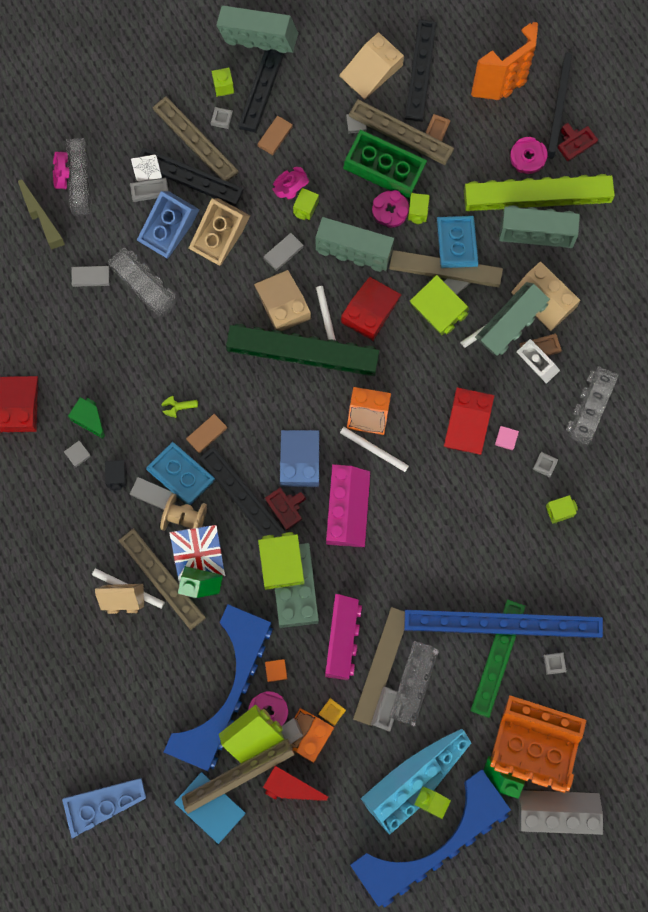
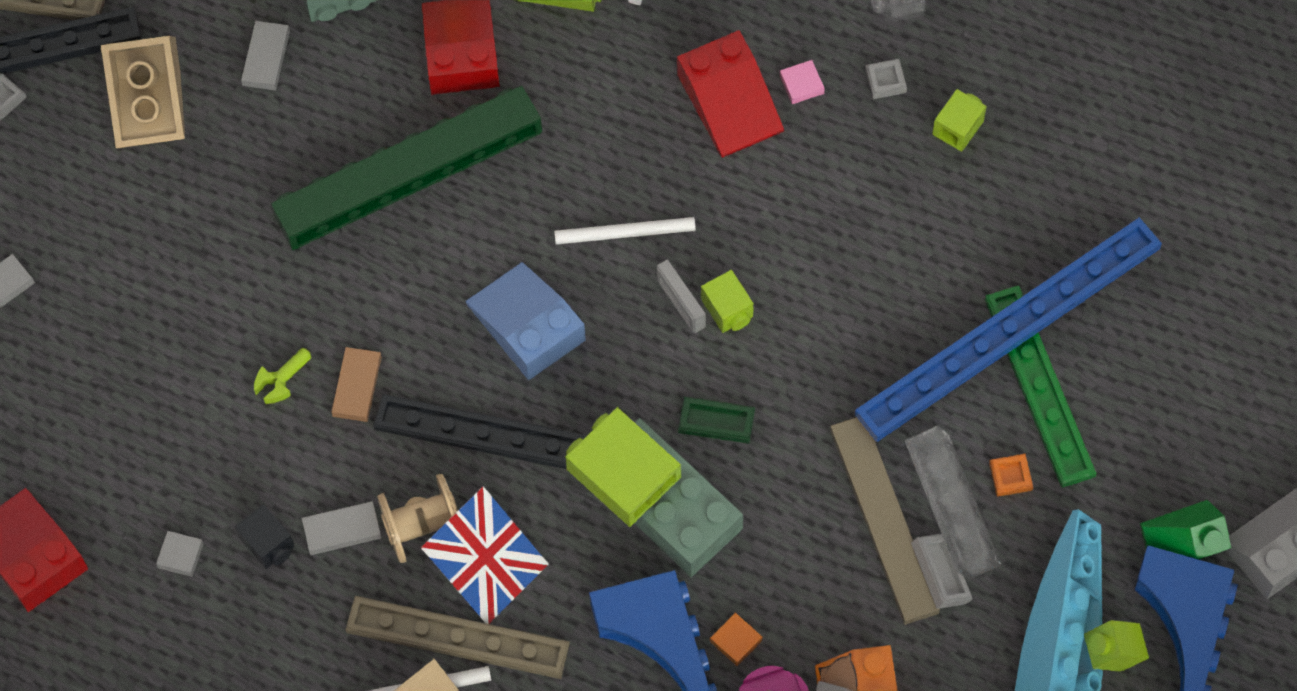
camera: 35 degrees left, 10 degrees down
(87, 416) = (155, 487): green slope -> none
(142, 282) = (84, 239): clear brick -> none
(167, 223) = (56, 133): medium blue slope -> none
(180, 474) = (363, 467): dark azure tile -> none
(199, 583) = (520, 596): green slope -> none
(283, 301) = (322, 121): tan slope -> none
(286, 507) = (561, 400): dark red hinge -> none
(325, 312) = (396, 94): white bar -> none
(332, 712) = (866, 632): yellow tile -> none
(342, 637) = (795, 517): dark pink slope -> none
(345, 566) = (716, 420): none -> dark green tile
(348, 506) = (650, 334): dark pink slope -> none
(368, 410) = (573, 180): slope -> none
(373, 499) = (681, 296): none -> light grey tile
(391, 517) = (727, 302): none -> lime brick
(452, 689) = (1011, 475): none -> orange tile
(537, 744) = (1192, 450): orange slope -> none
(554, 663) = (1124, 334): light grey tile -> none

